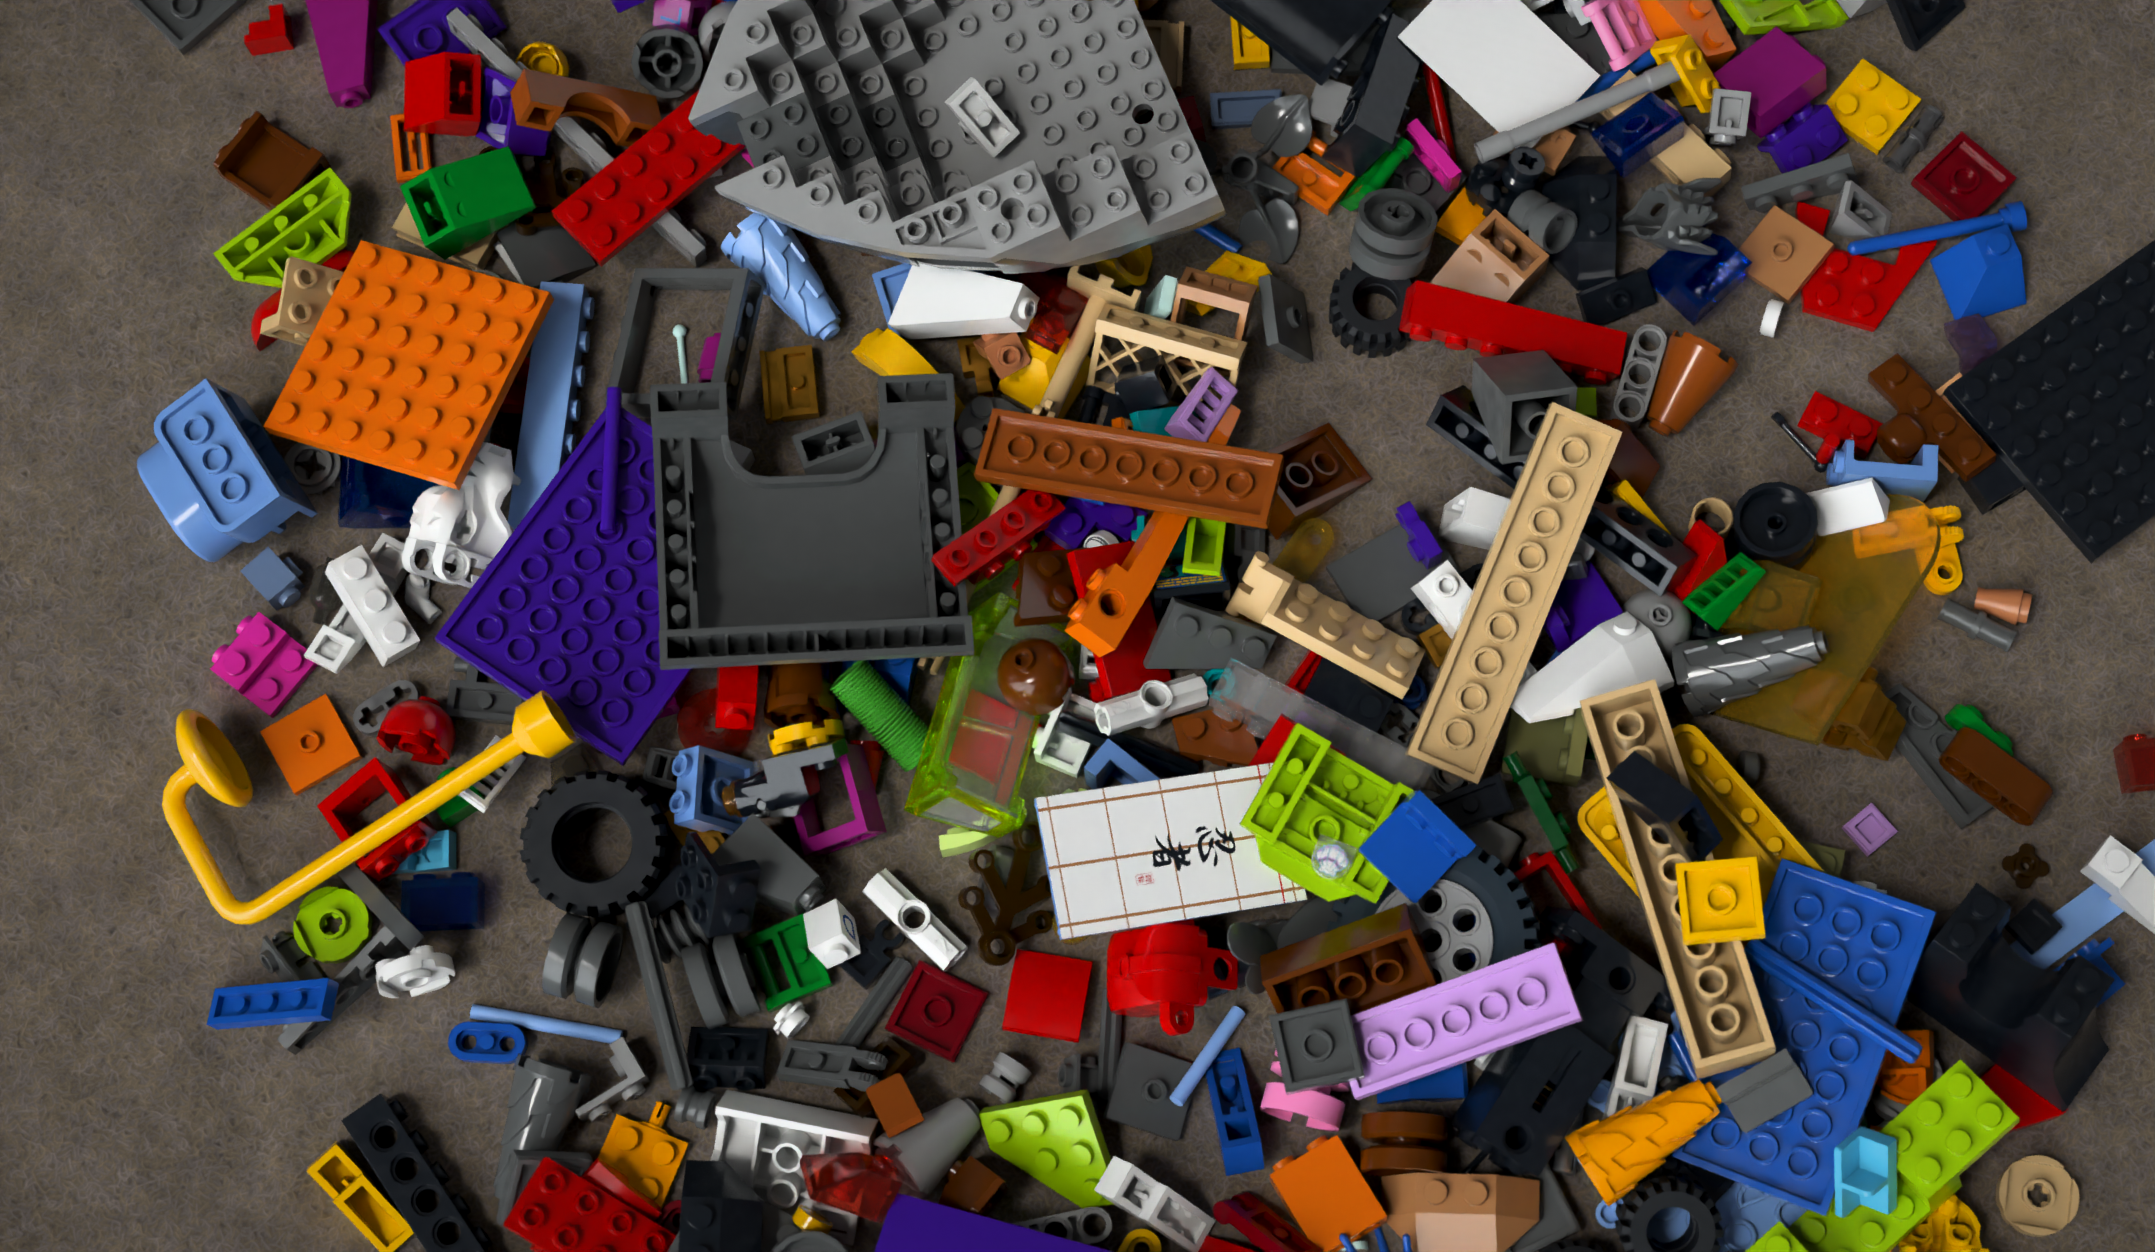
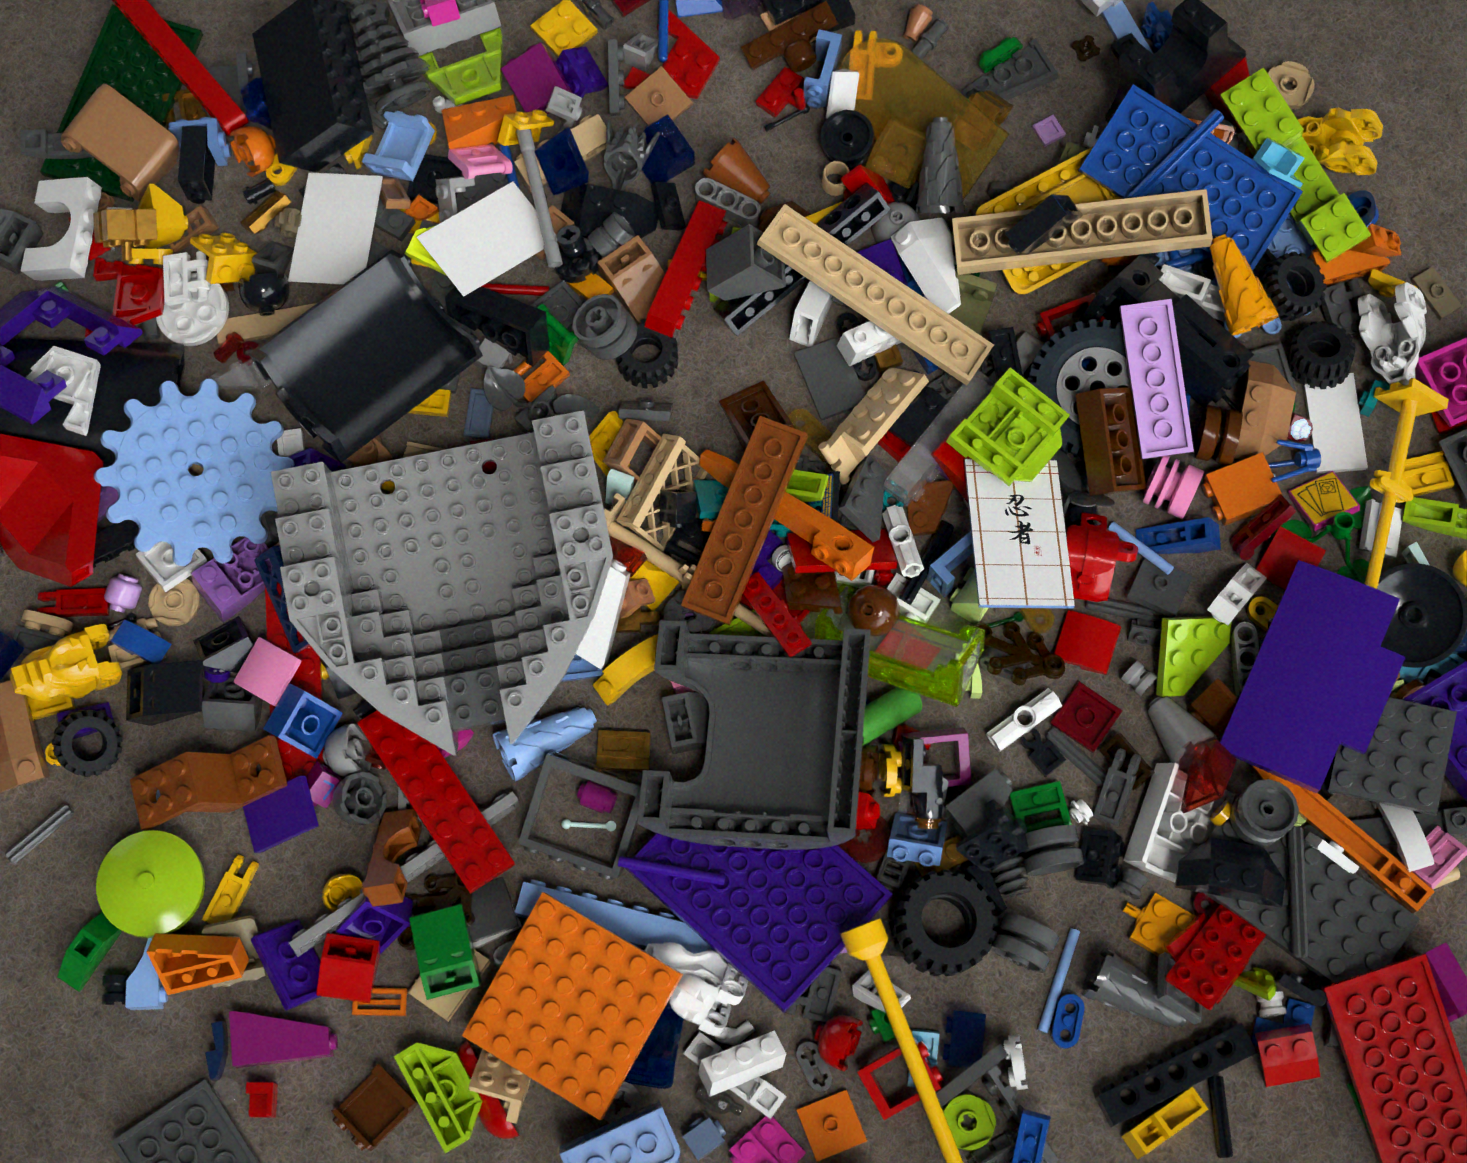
camera: 85 degrees left, 0 degrees up
(625, 1063) = (1096, 927): light grey bracket -> none
(658, 995) = (1057, 892): dark grey axle -> none
(831, 933) = (1029, 773): white brick -> none
(894, 1105) = (1156, 745): dark orange slope -> none
(982, 117) = (471, 572): white slope -> none
(1185, 424) = (716, 482): lavender slope -> none
(1316, 1046) = (1158, 467): dark grey plate -> none
(1332, 858) = (1037, 435): clear tile -> none
(1415, 846) = (1039, 379): blue bracket -> none
(1421, 541) = (819, 352): dark purple plate -> none
(1433, 155) = (550, 293): dark pink plate -> none
(1552, 823) = (1009, 311): dark green plate -> none
(1716, 599) = (886, 185): green slope -> none
(1720, 901) = (1110, 202): yellow plate -> none
(1765, 1091) = (1224, 209): dark grey panel -> none
(1771, 318) = (701, 115): white tile -> none
(1995, 776) = (1031, 48): reddish brown beam -> none

